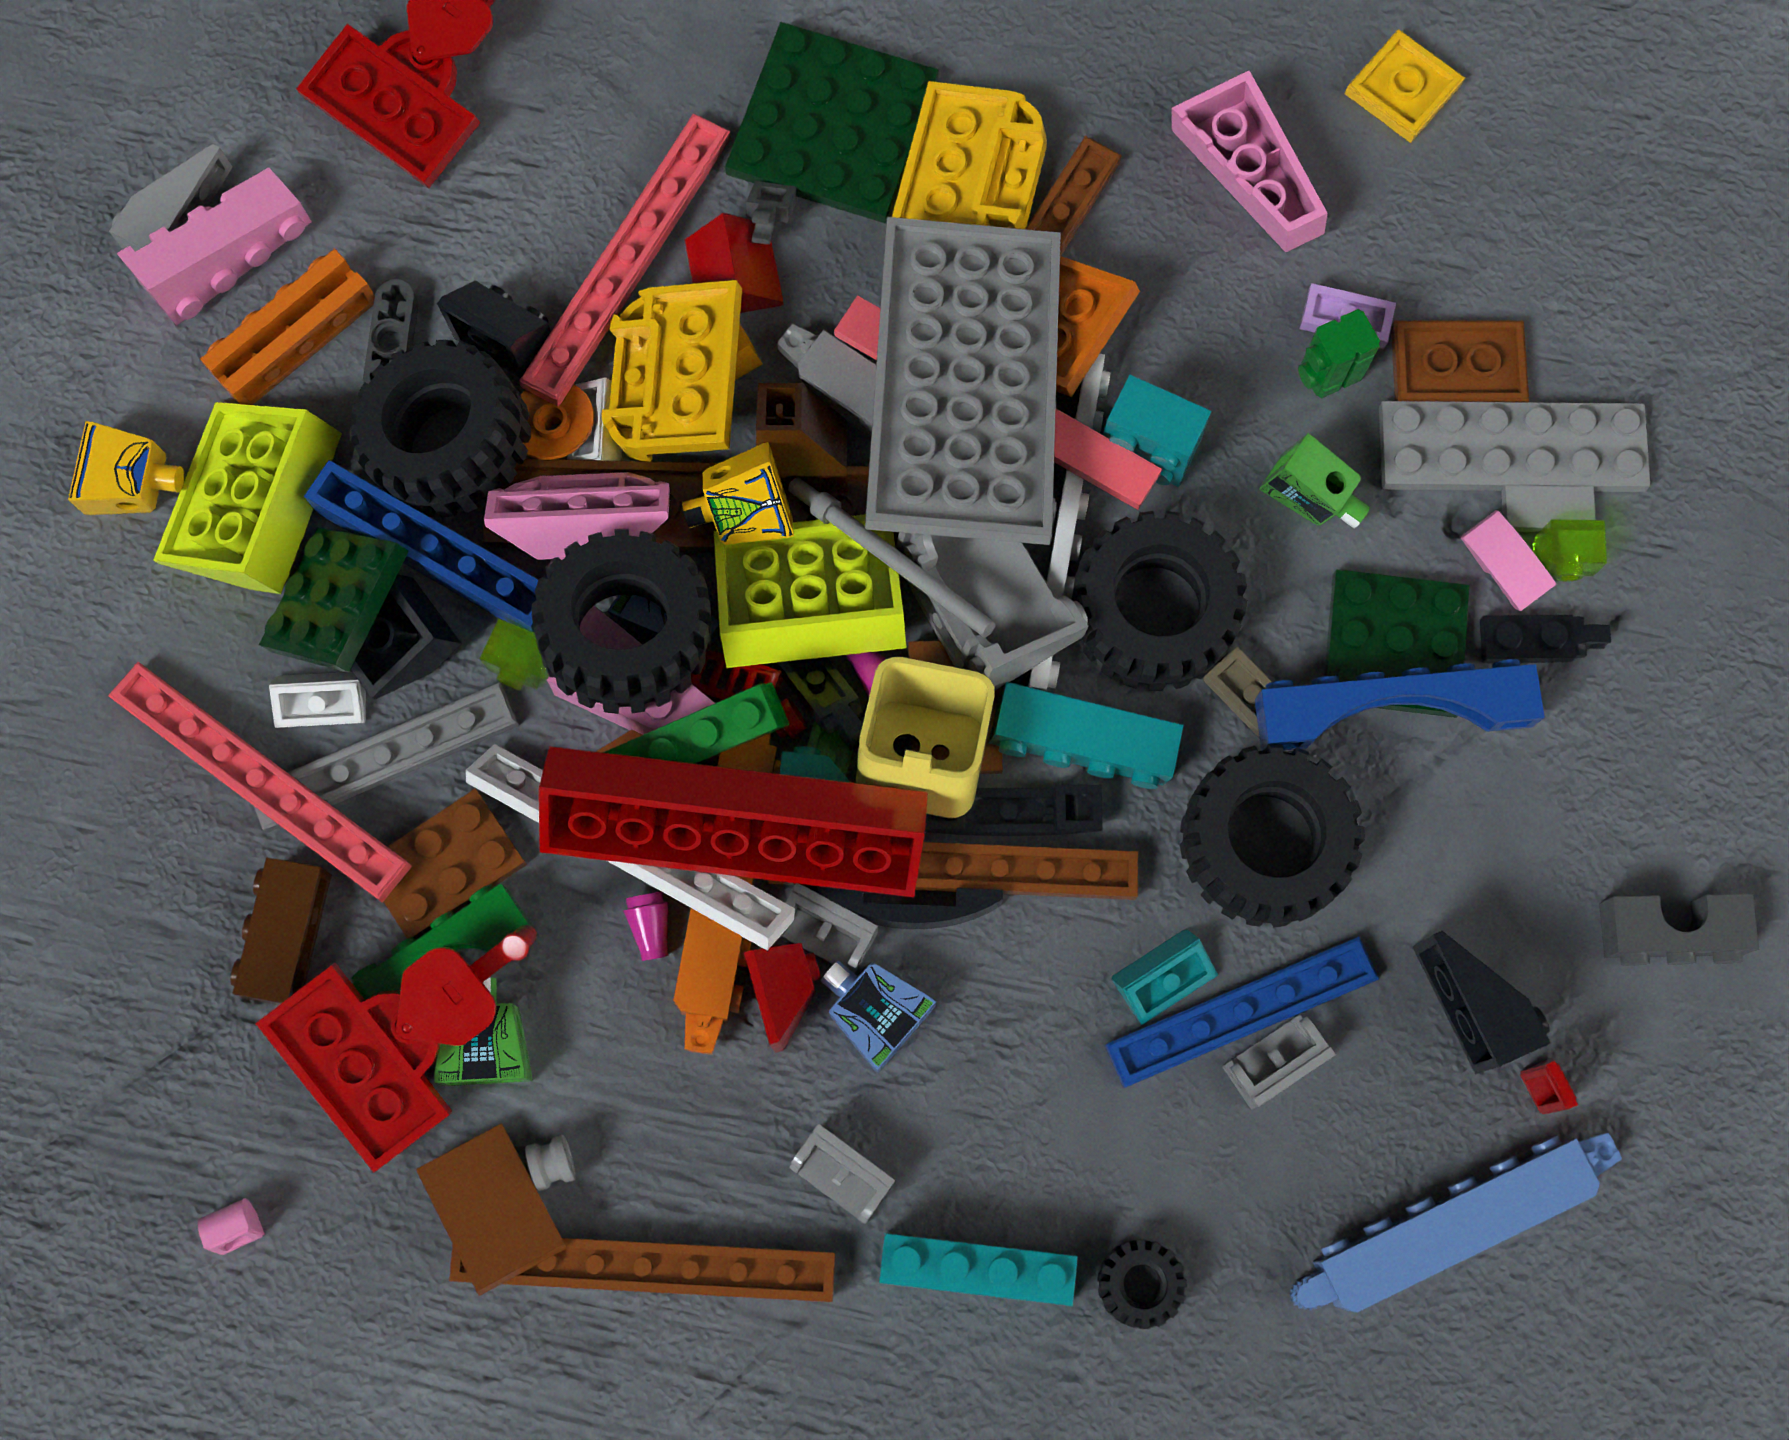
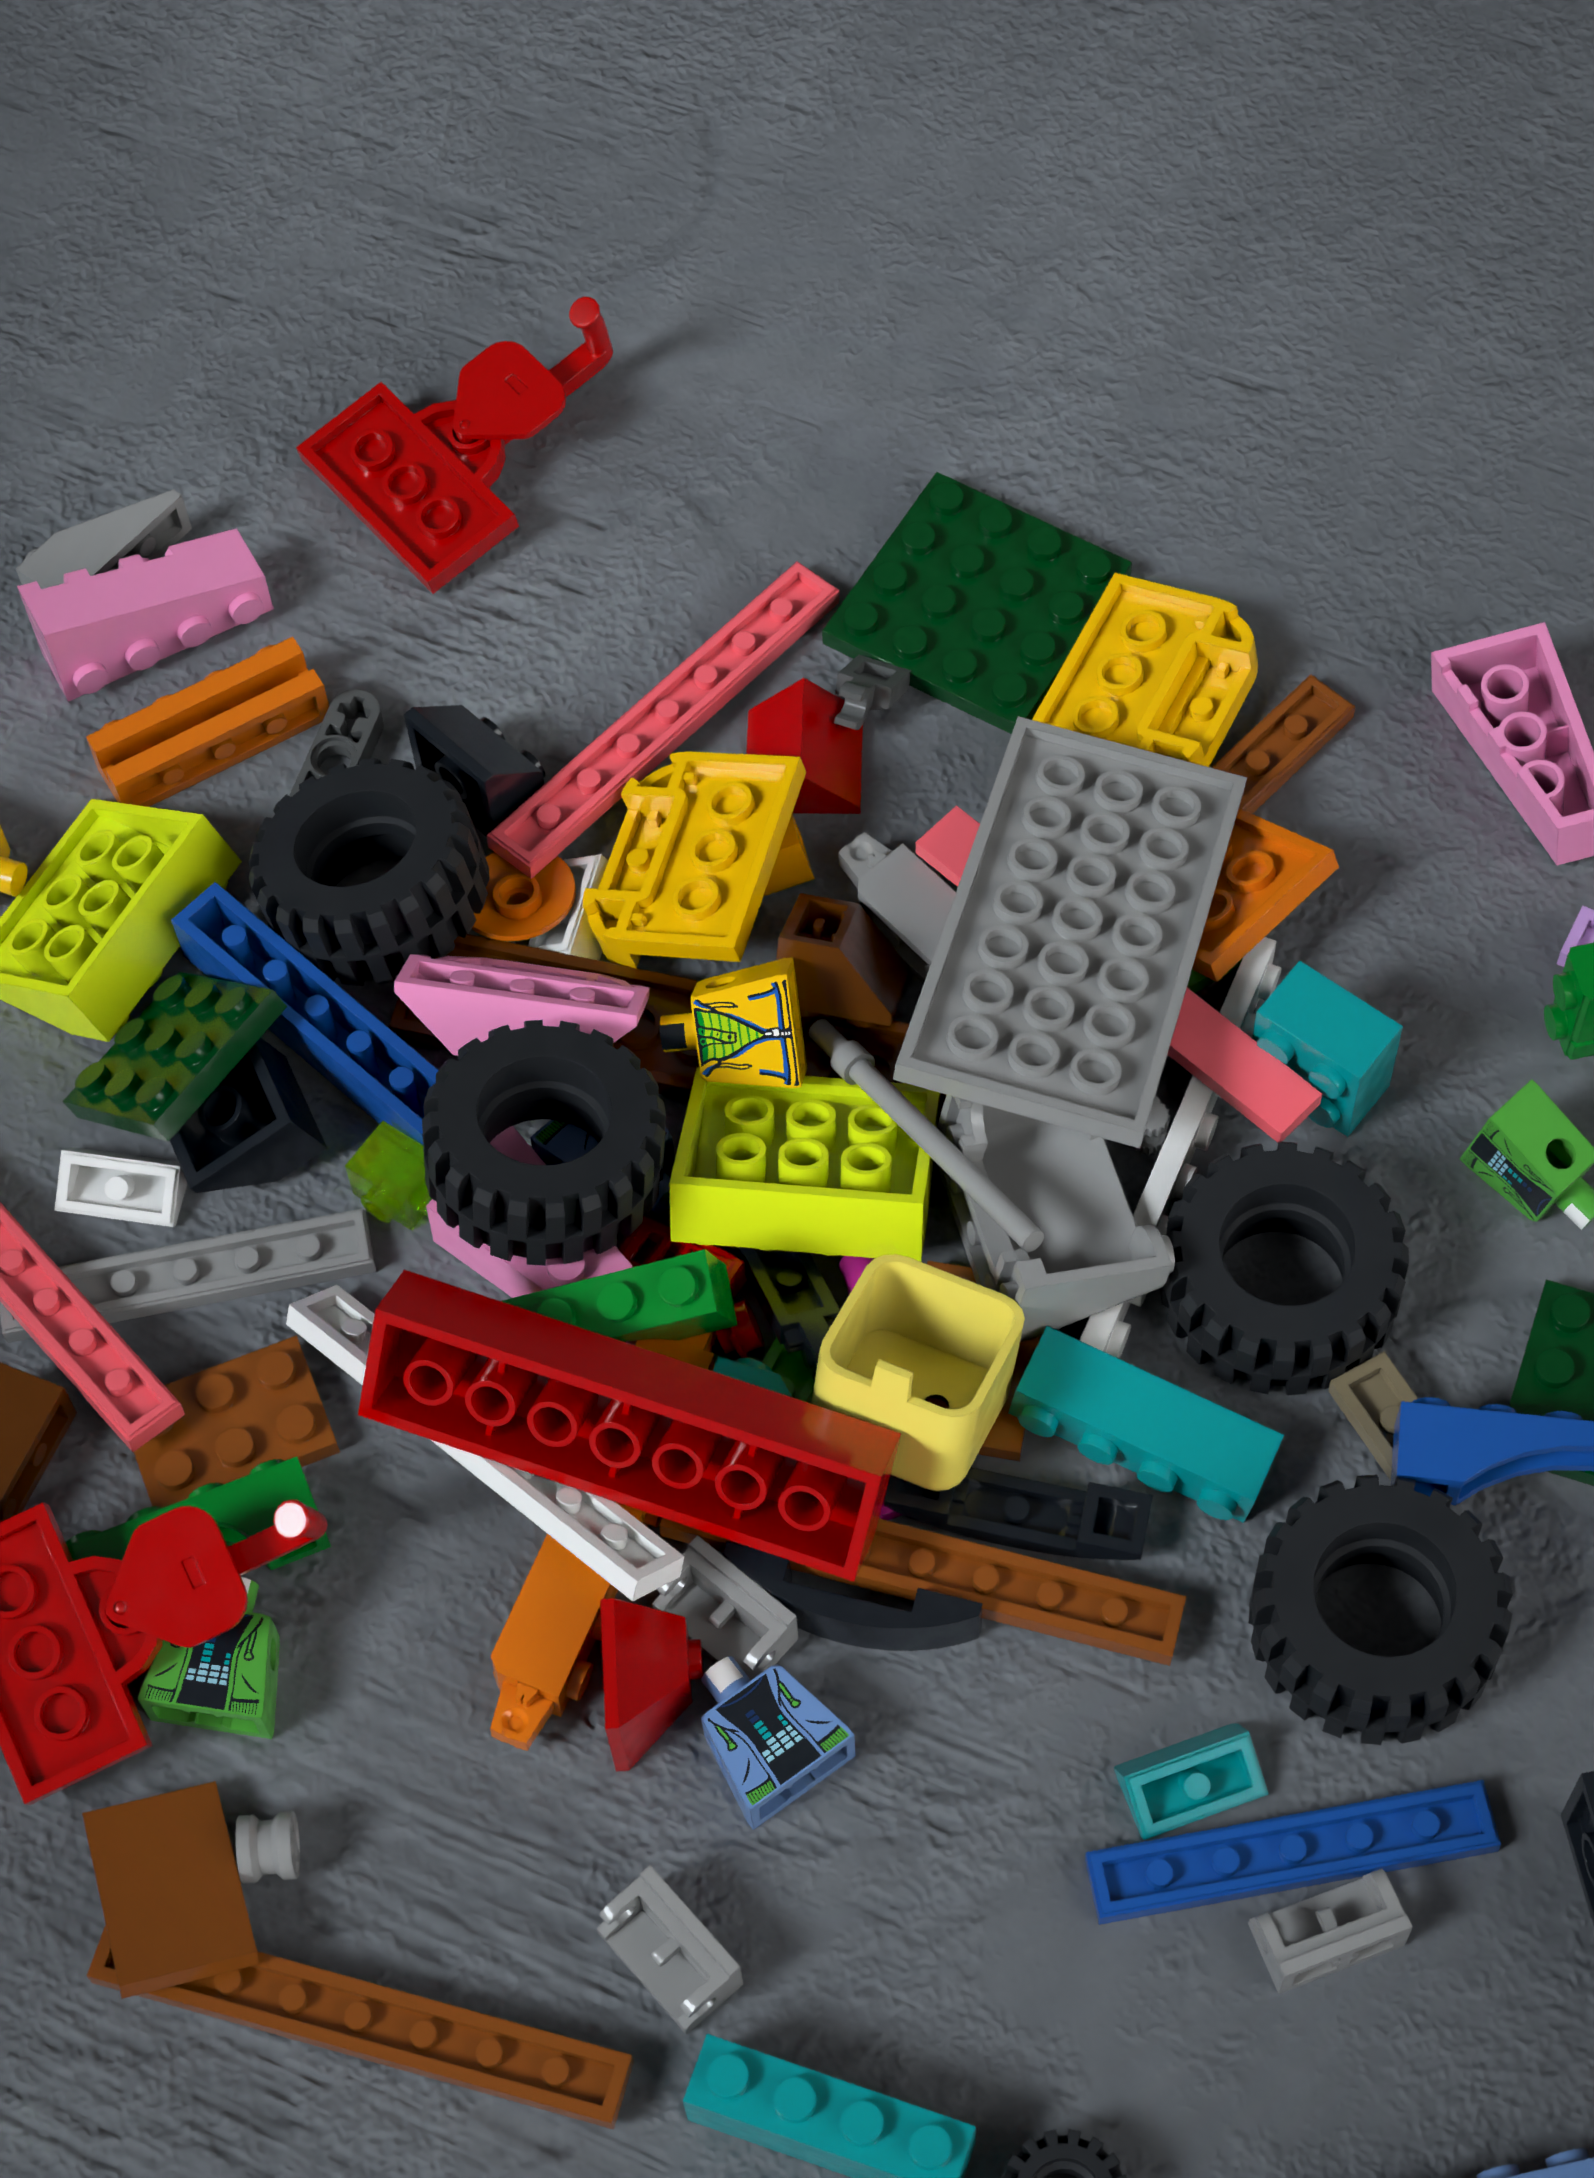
camera: 15 degrees right, 15 degrees down
(649, 924) = (484, 1555): dark pink cone -> none

